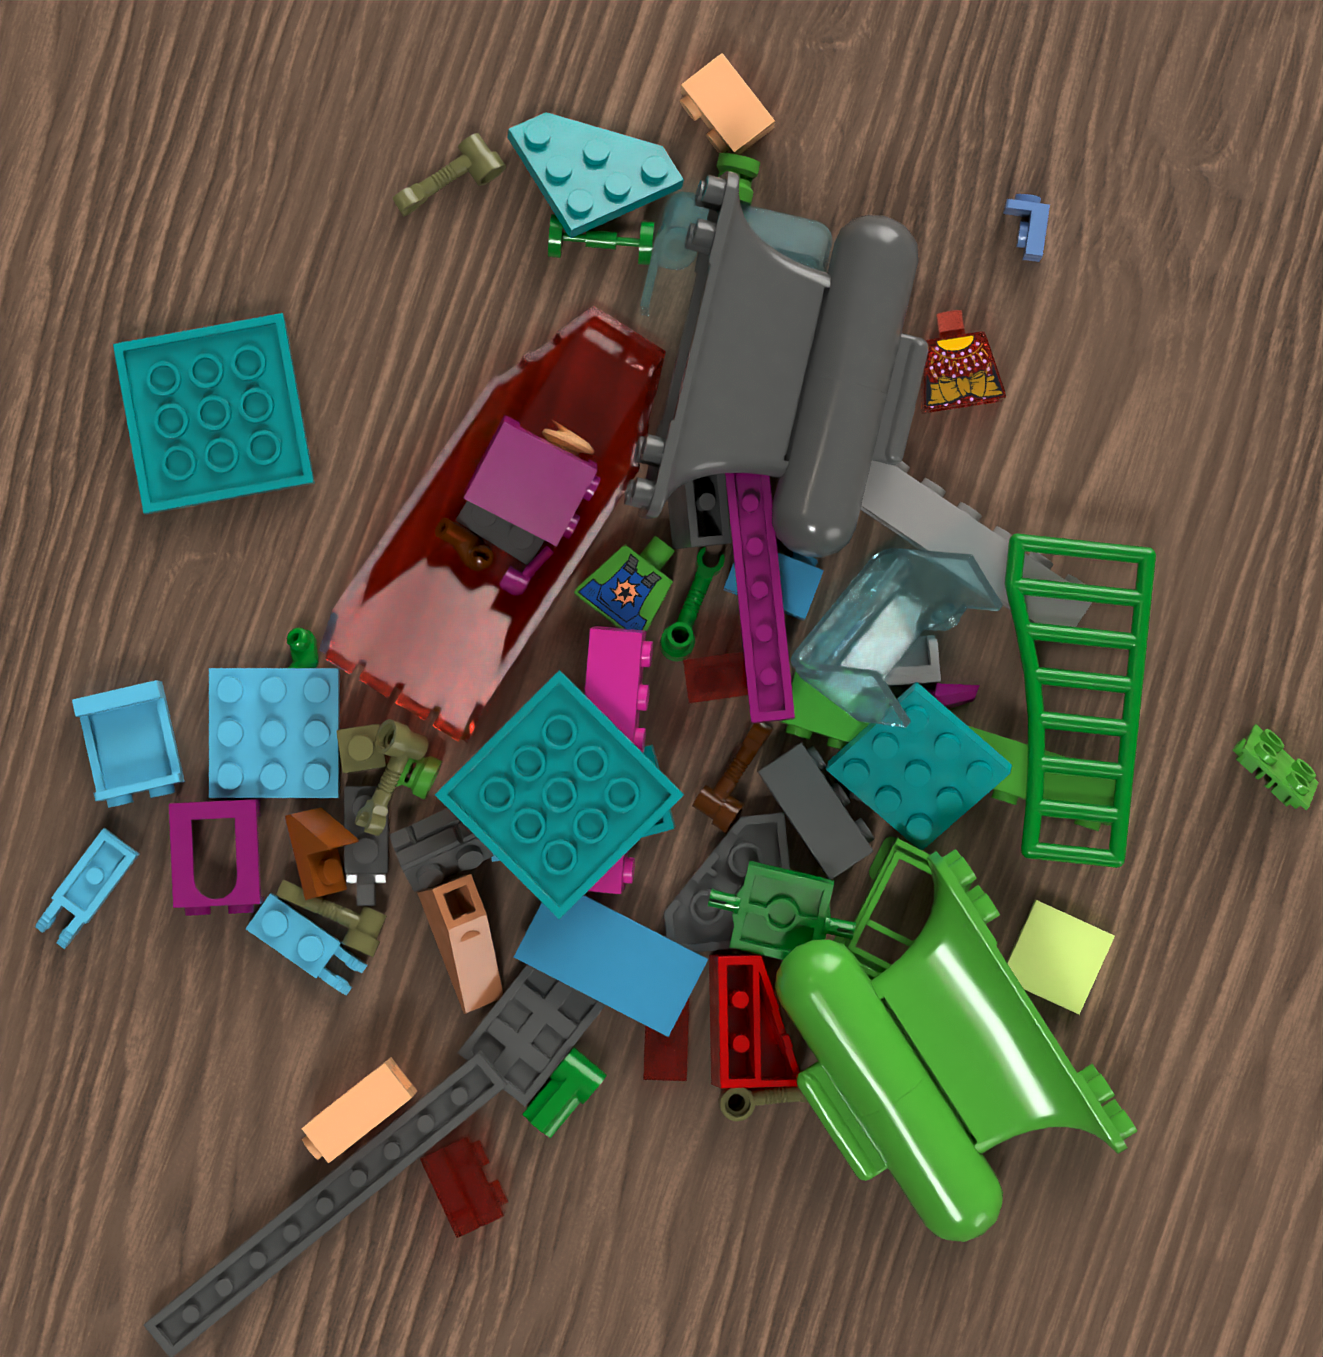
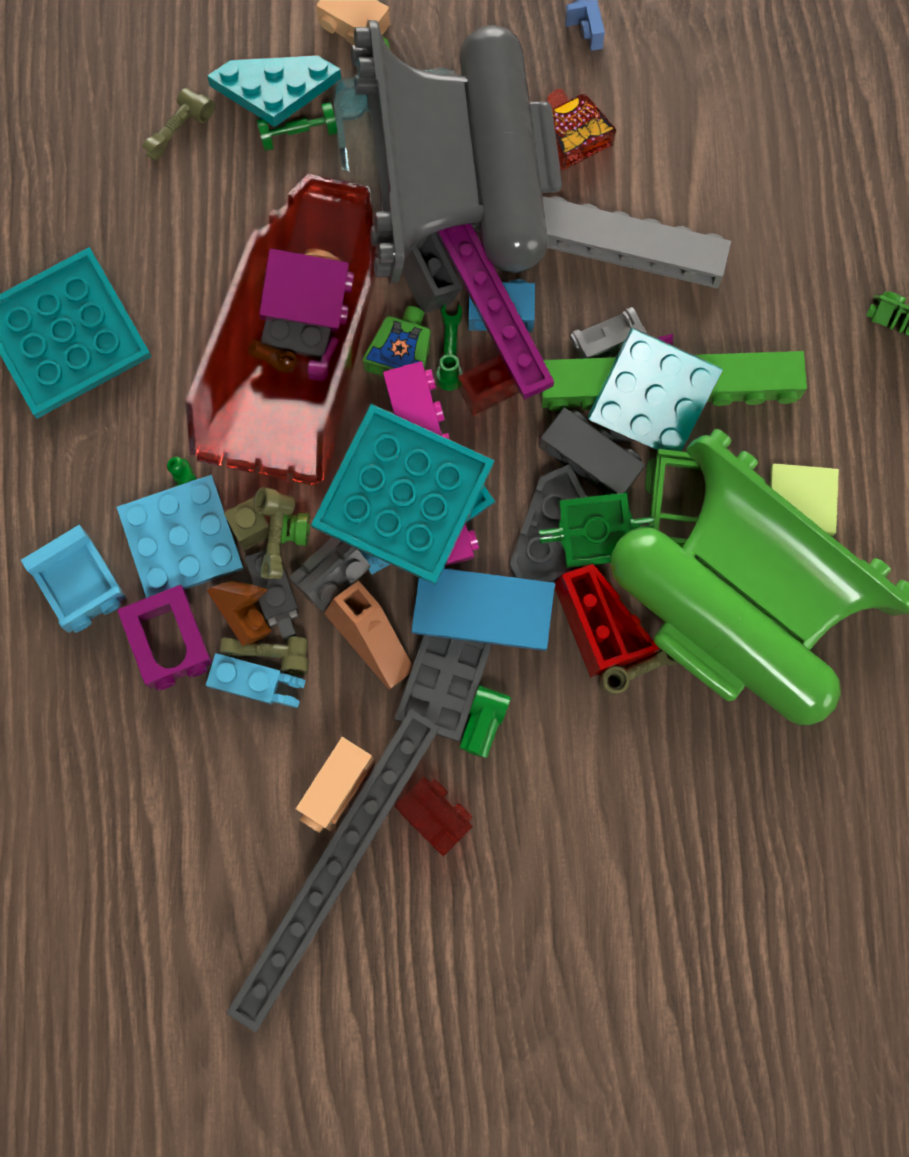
camera: 20 degrees left, 10 degrees down
(89, 884) = (77, 695): medium azure hinge -> none
(667, 1056) = (548, 666): clear red plate -> none
(718, 802) = (520, 475): reddish brown brick -> none
(880, 620) = (584, 309): clear light blue windscreen -> none
(1036, 676) = (728, 331): green bar -> none

